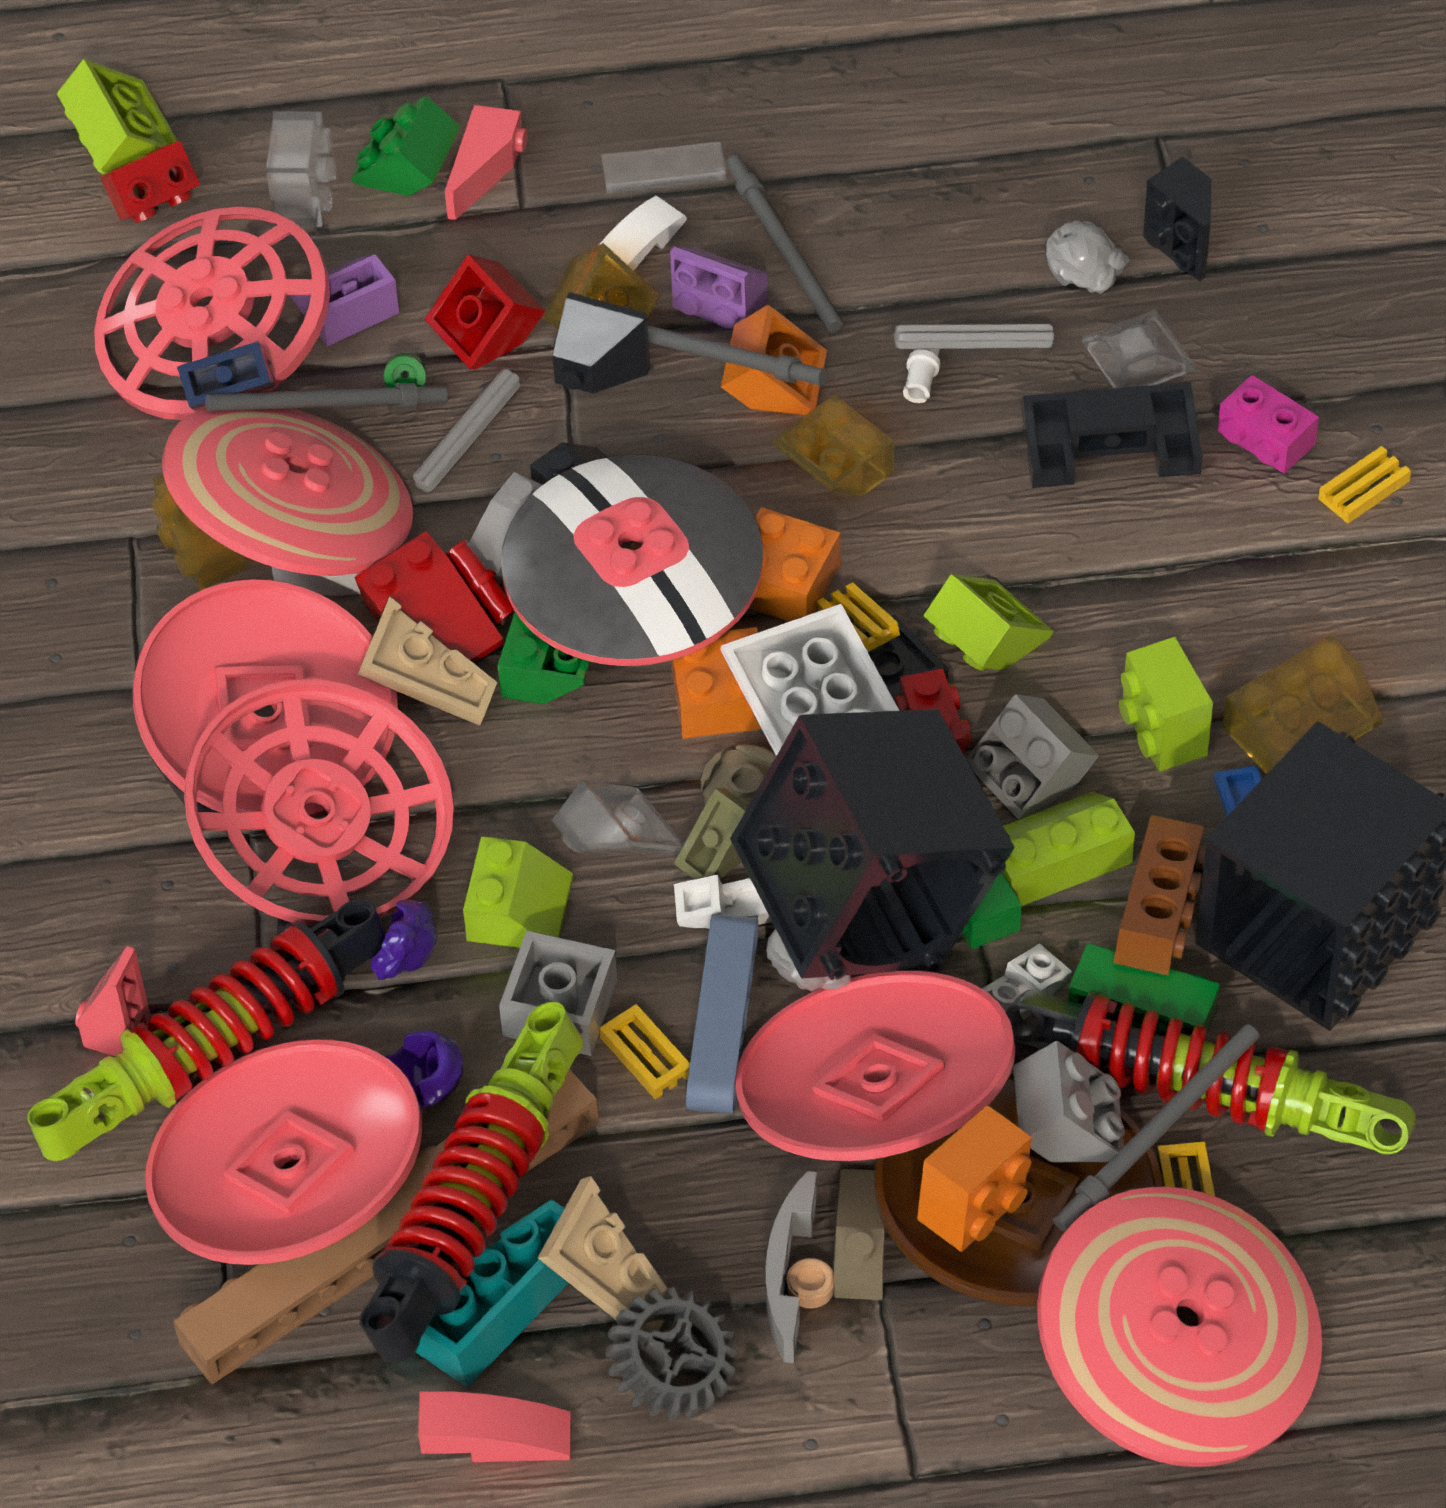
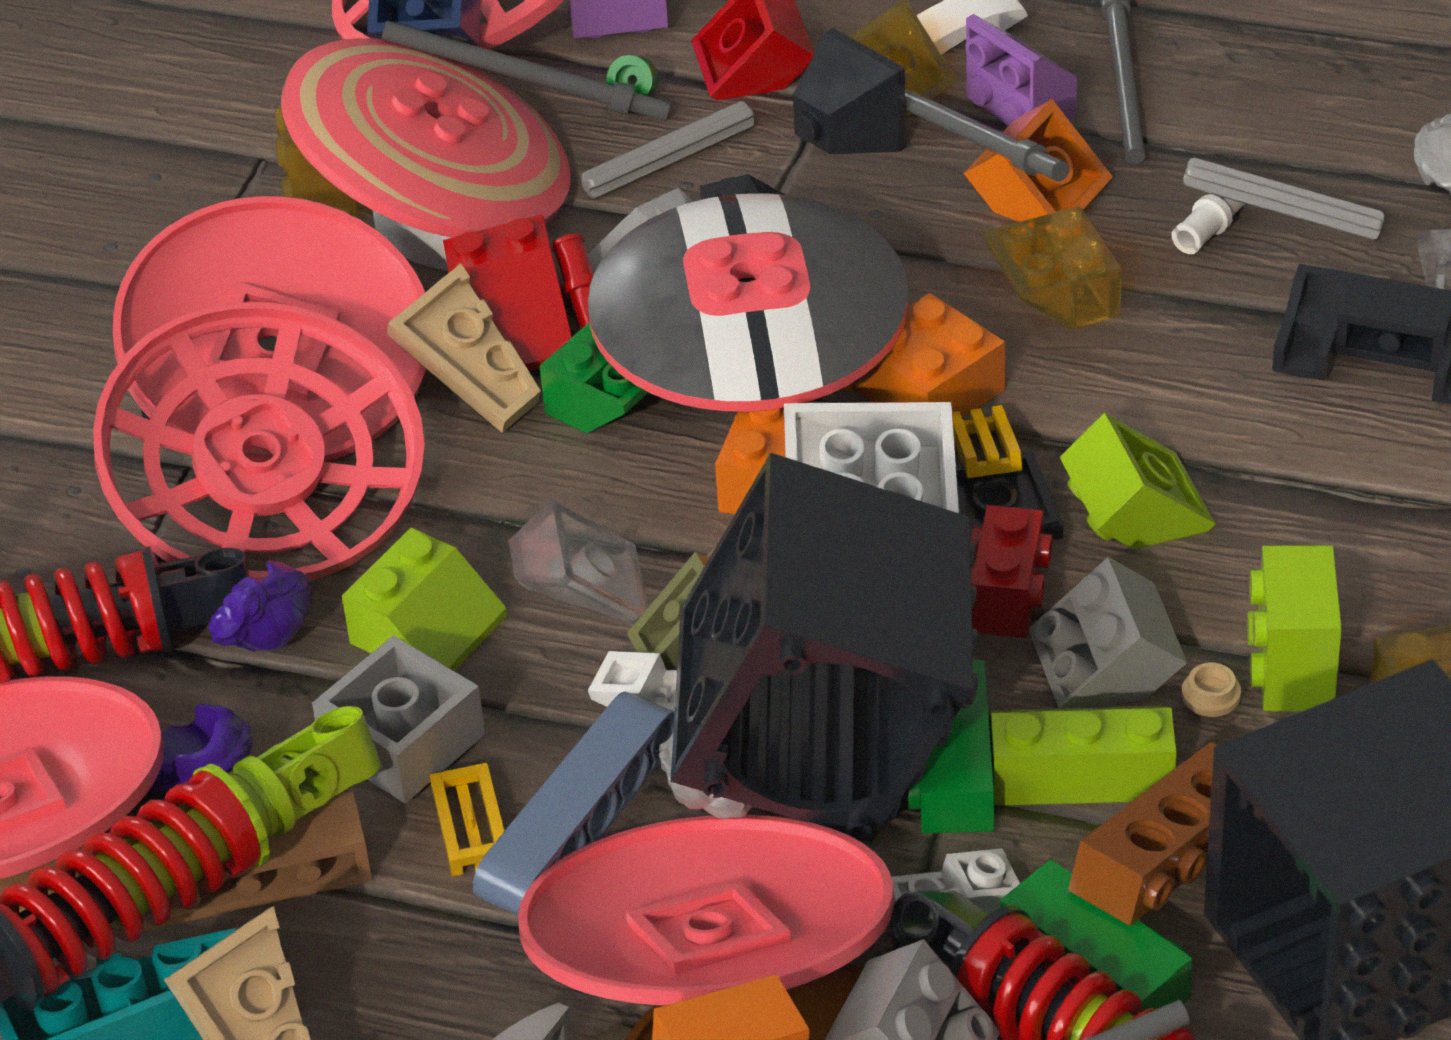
camera: 25 degrees right, 10 degrees down
(1120, 770) = (1211, 690): none -> tan plate

